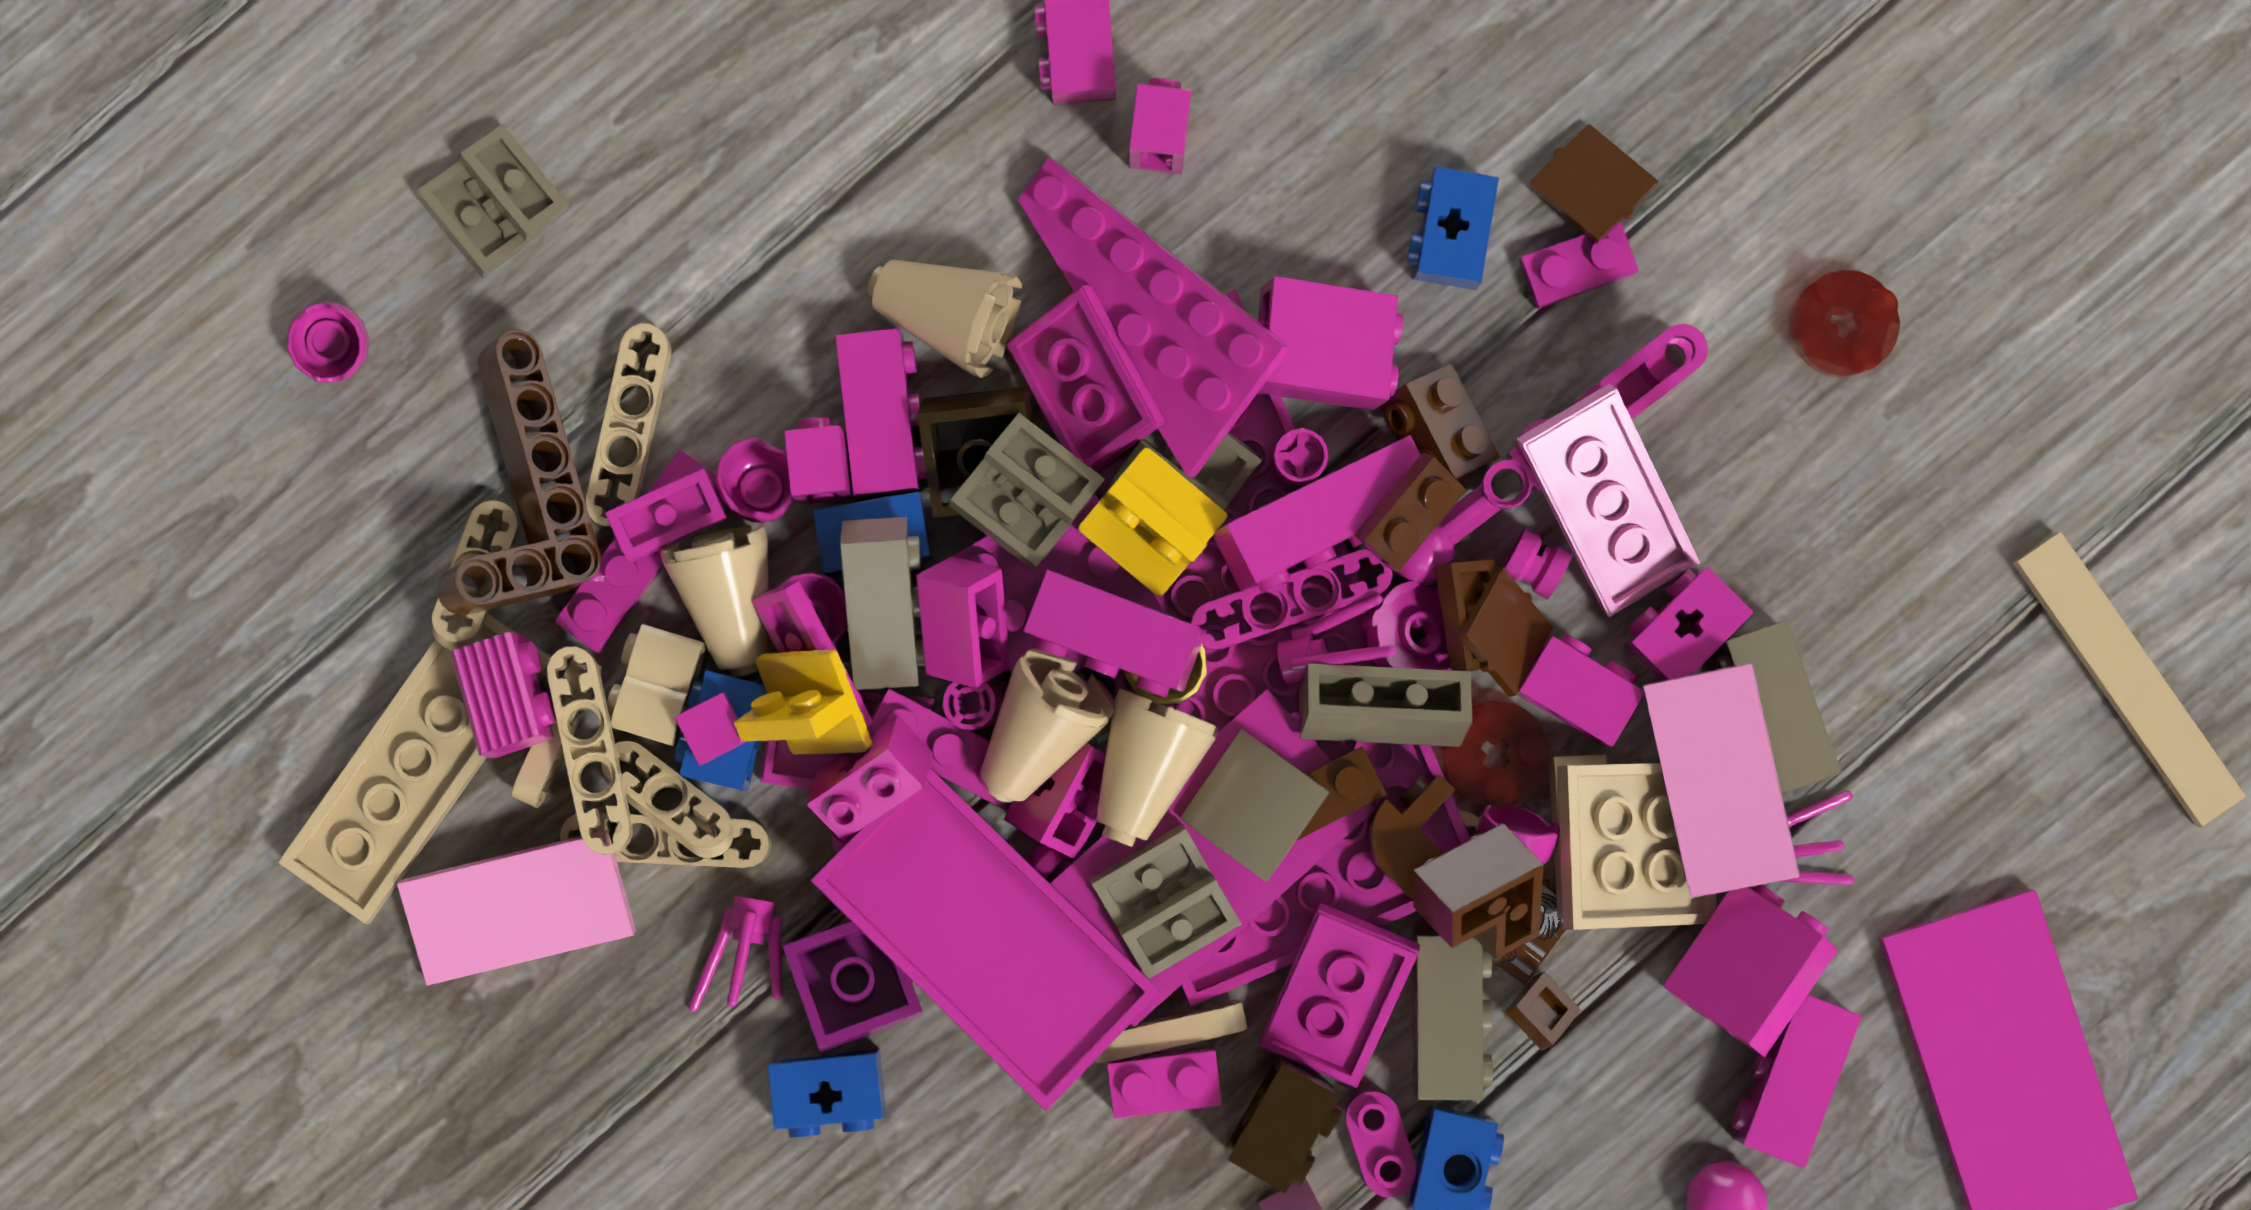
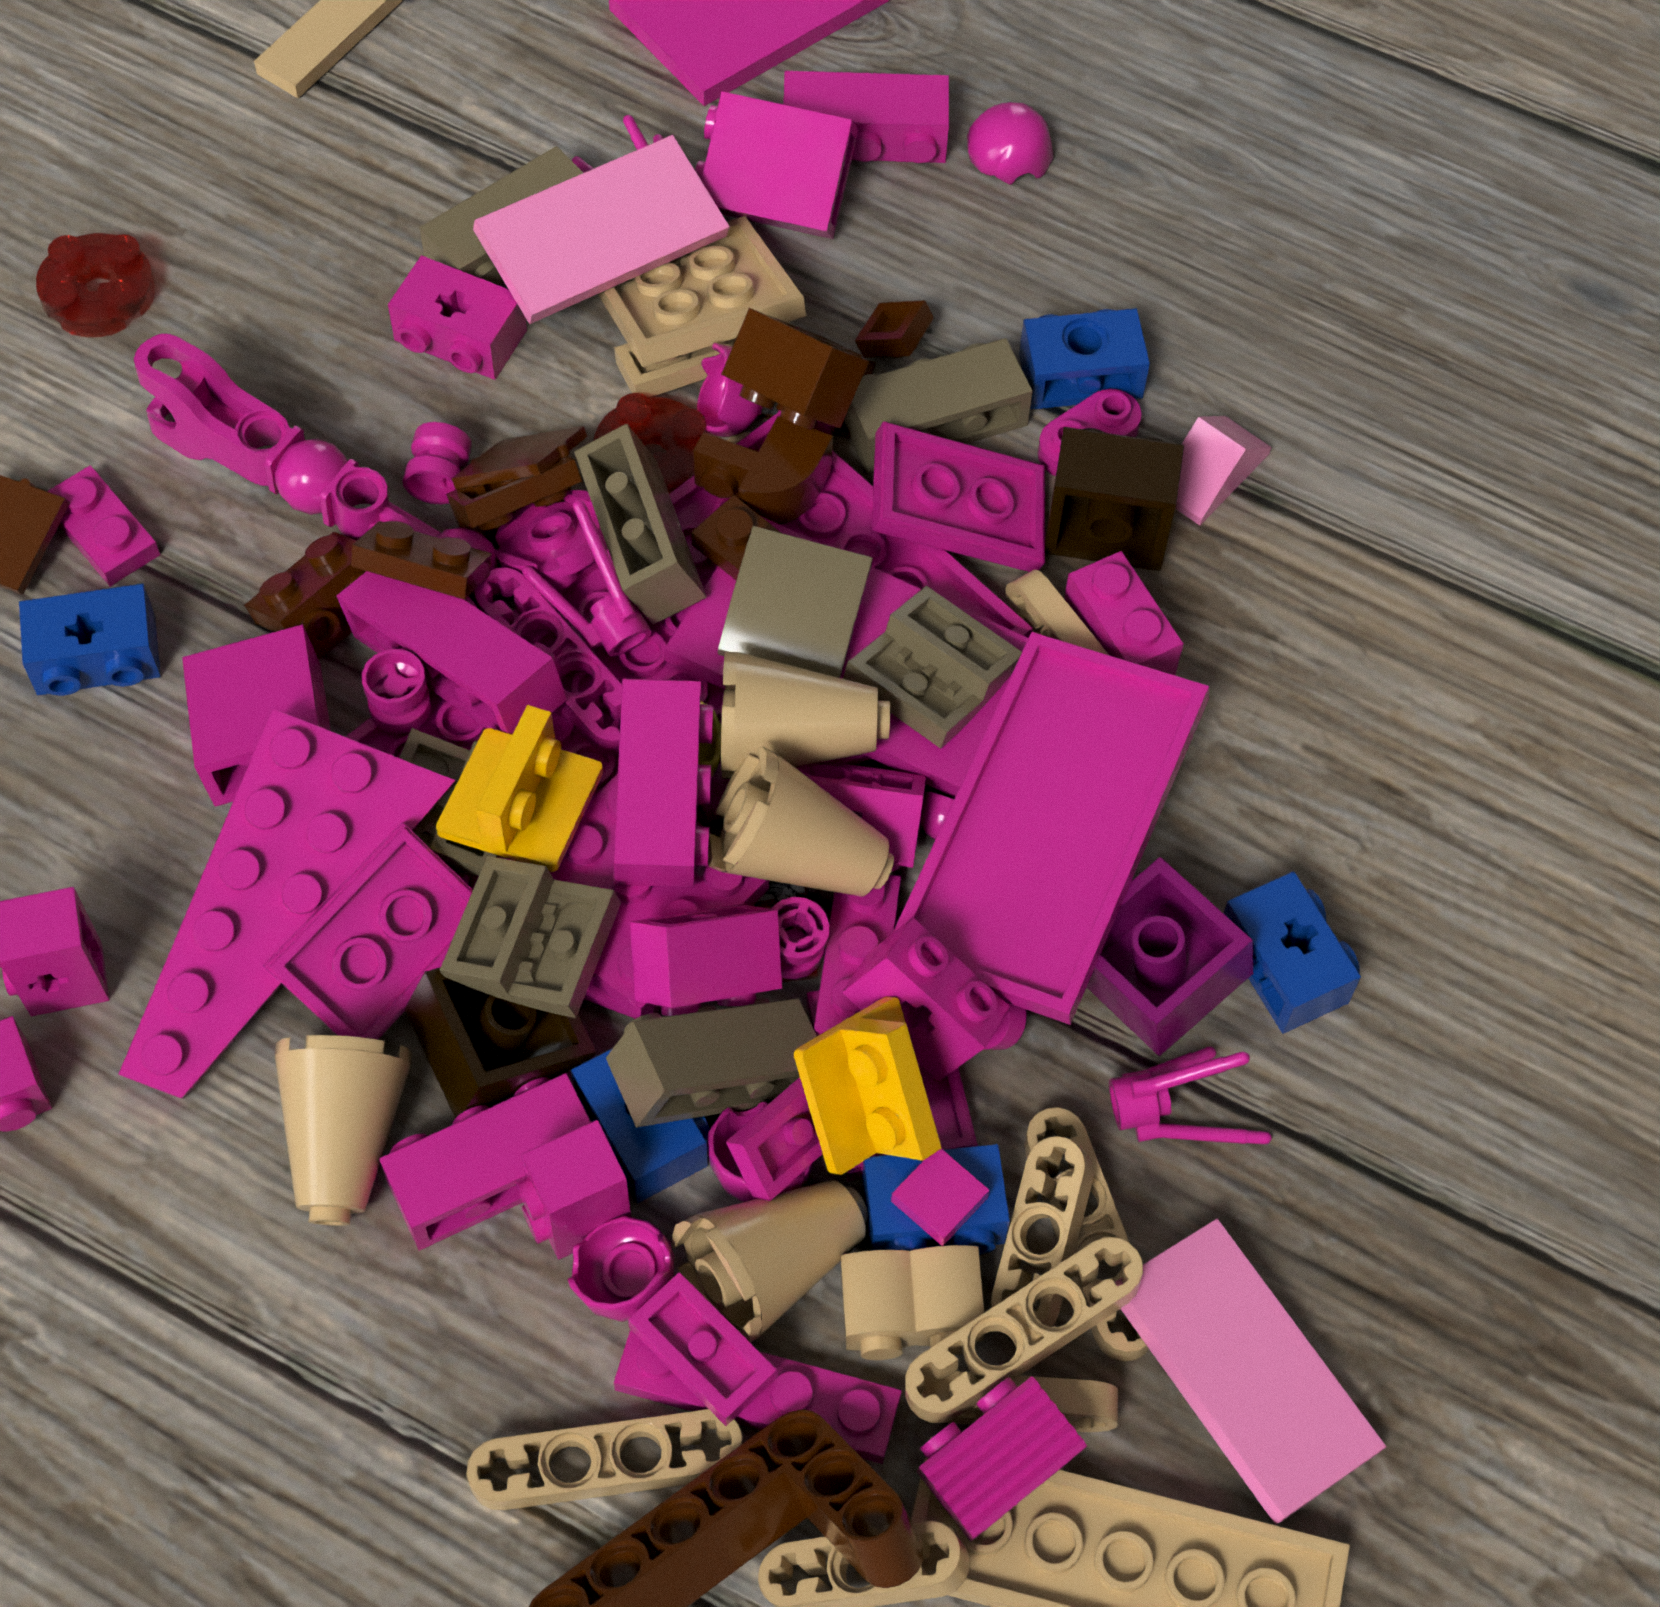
camera: 115 degrees left, 25 degrees down
(1581, 691) = (557, 380): dark pink brick -> none
(1608, 500) = (345, 403): bright pink tile -> none

